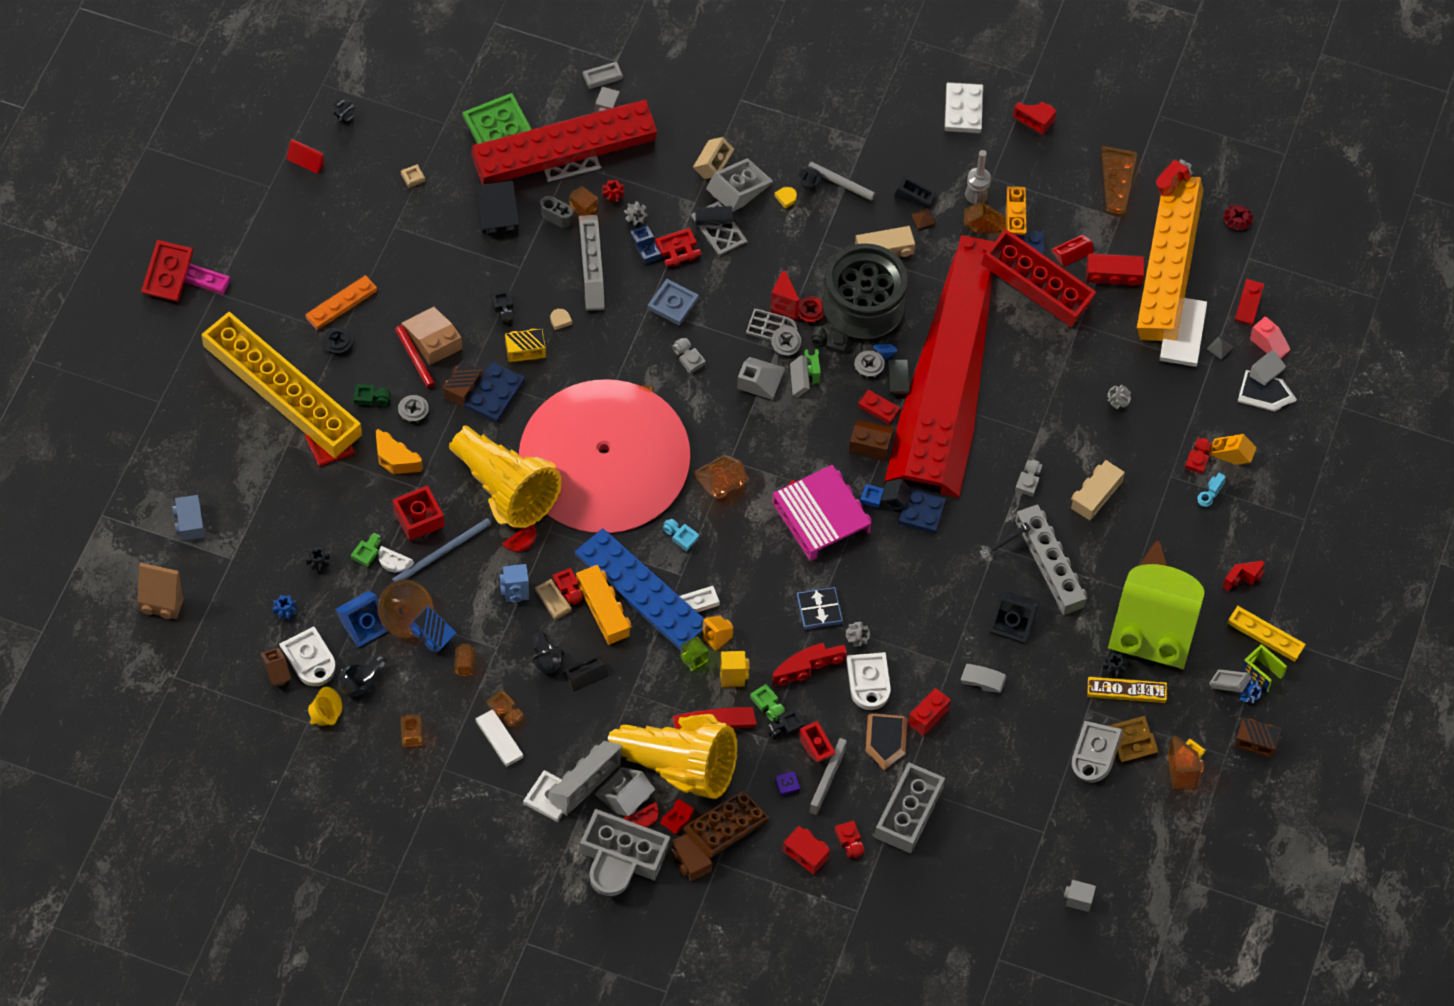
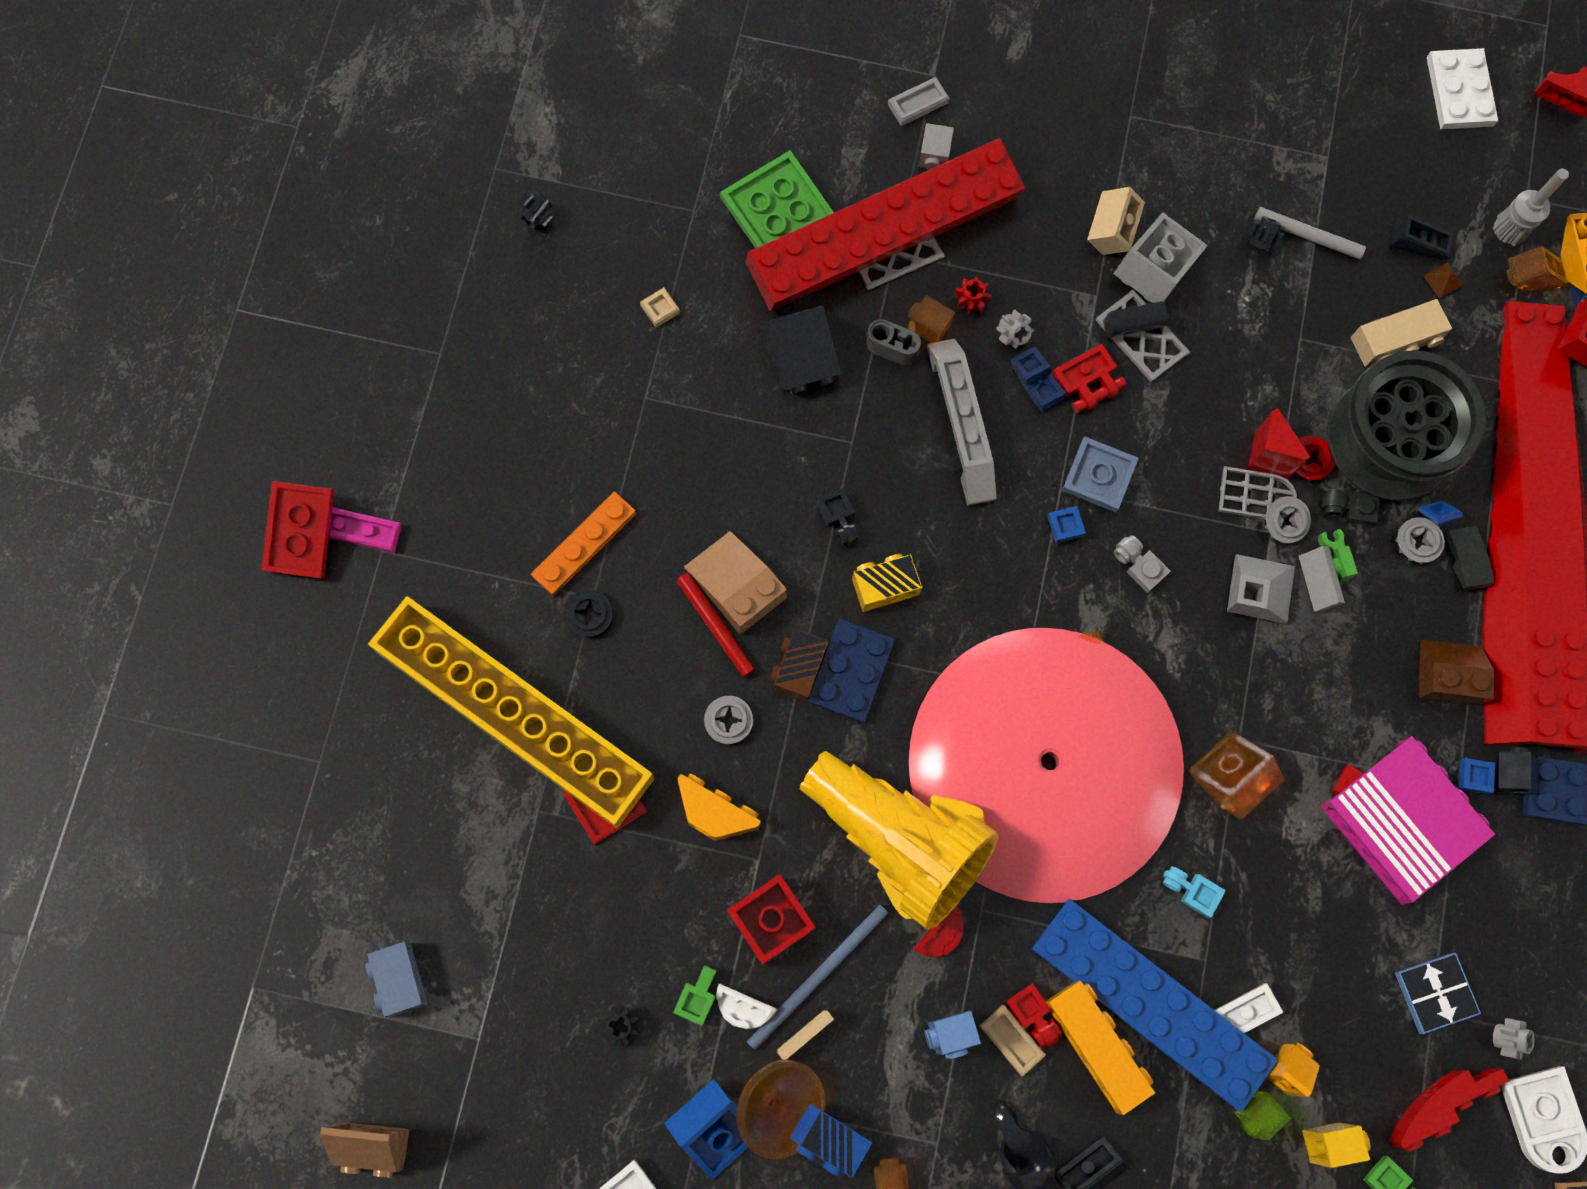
camera: 10 degrees left, 15 degrees up
(284, 607) = (587, 1123): blue gear -> none
(305, 156) = (487, 297): red slope -> none
(366, 394) = (649, 707): dark green plate -> none
(430, 575) = (804, 1035): none -> tan tile
(560, 319) = (930, 526): tan tile -> none
(645, 327) = (1066, 524): none -> blue plate
(786, 196) = (1233, 269): yellow tile -> none
(879, 407) = (1449, 613): red plate -> none

